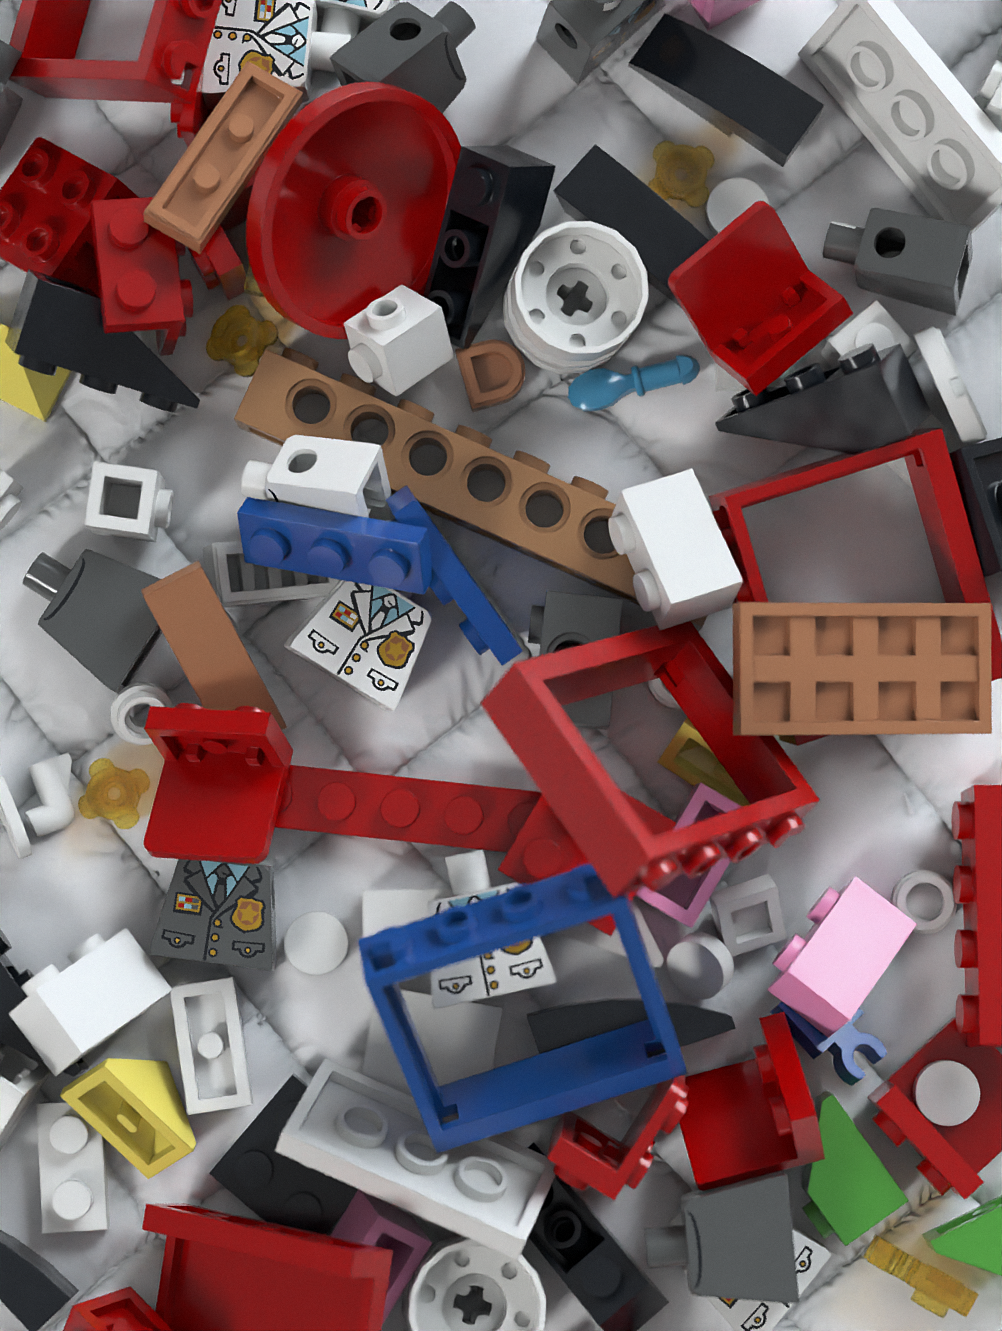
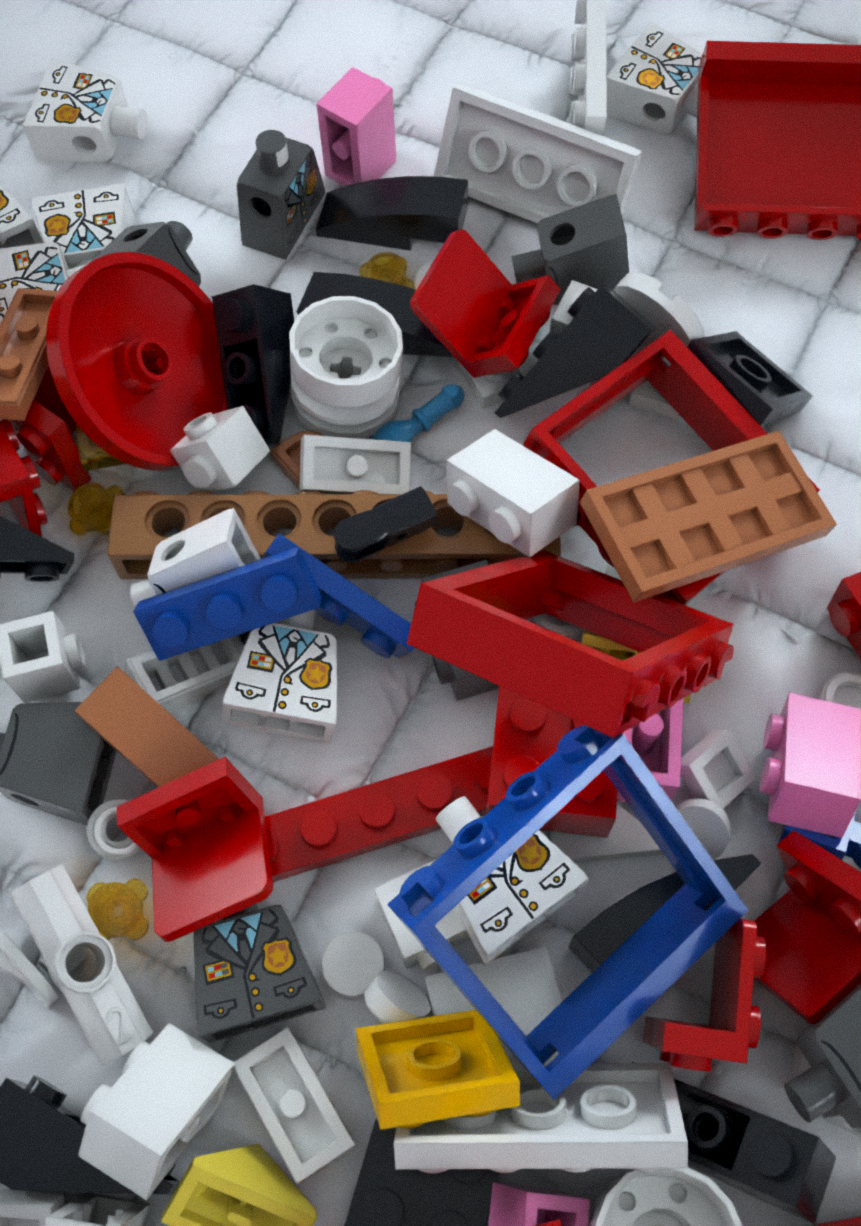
camera: 20 degrees left, 20 degrees down
(61, 801) = (104, 1002): none -> white piece
(341, 998) = (395, 998): none -> white tile
(343, 1080) = (435, 1069): none -> yellow plate
(531, 521) = (384, 525): none -> black bar
(537, 418) = (354, 465): none -> white plate

